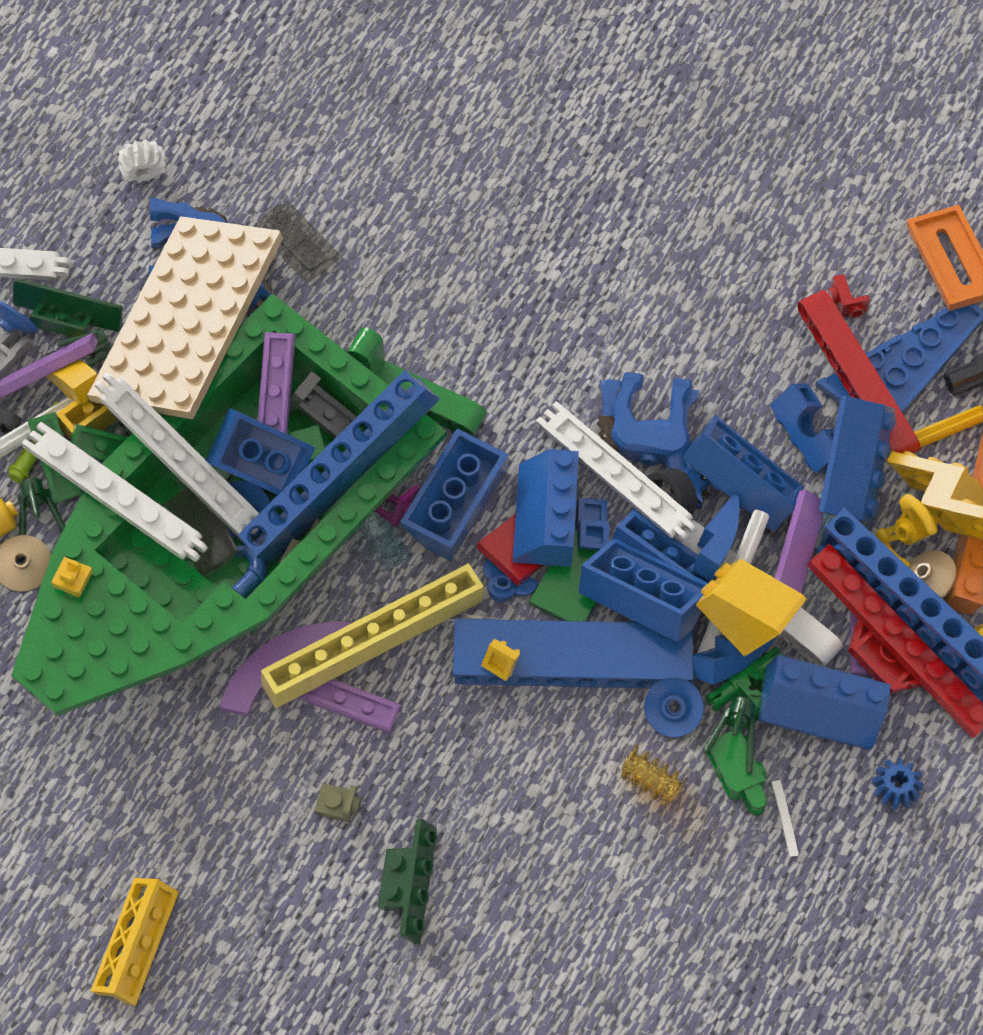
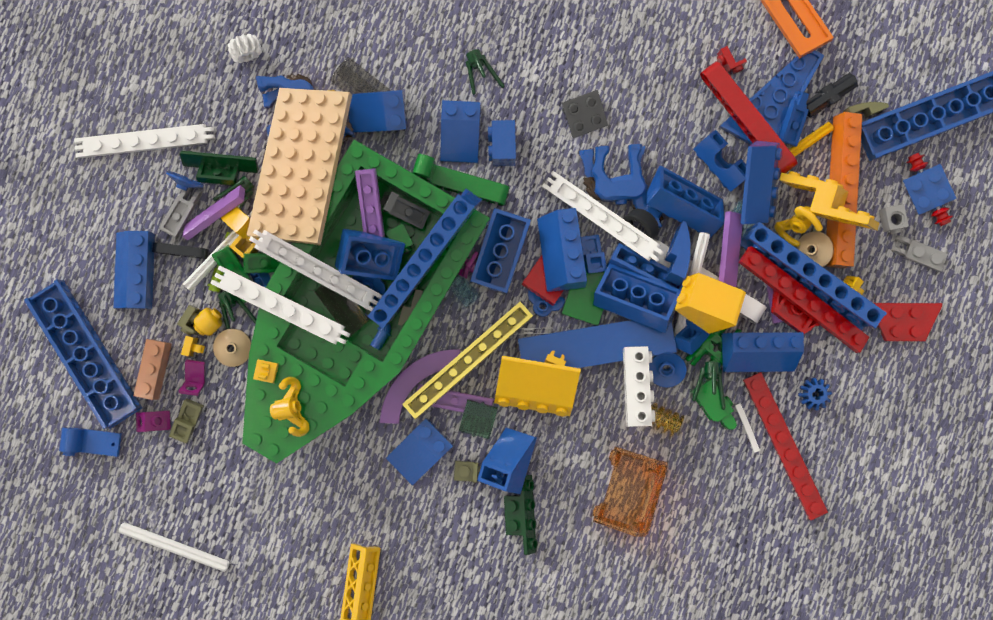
camera: 10 degrees left, 20 degrees up
(96, 628) = (290, 407): none -> yellow piece
(271, 758) = (419, 451): none -> blue slope
(315, 275) = (378, 111): none -> blue slope
(370, 728) = (478, 419): none -> clear green piece
(402, 794) = (508, 461): none -> blue slope
(429, 323) = (460, 131): none -> blue slope
(469, 684) = (536, 386): none -> yellow slope
(474, 236) = (477, 60): none -> dark green plant
(487, 347) = (503, 143): none -> blue brick
(589, 874) = (631, 492): none -> clear orange windscreen
(618, 332) = (584, 114): none -> dark grey hinge
(621, 712) = (637, 386): none -> white brick
(839, 857) = (785, 446): none -> red plate
(927, 390) = (794, 119): none -> blue hinge

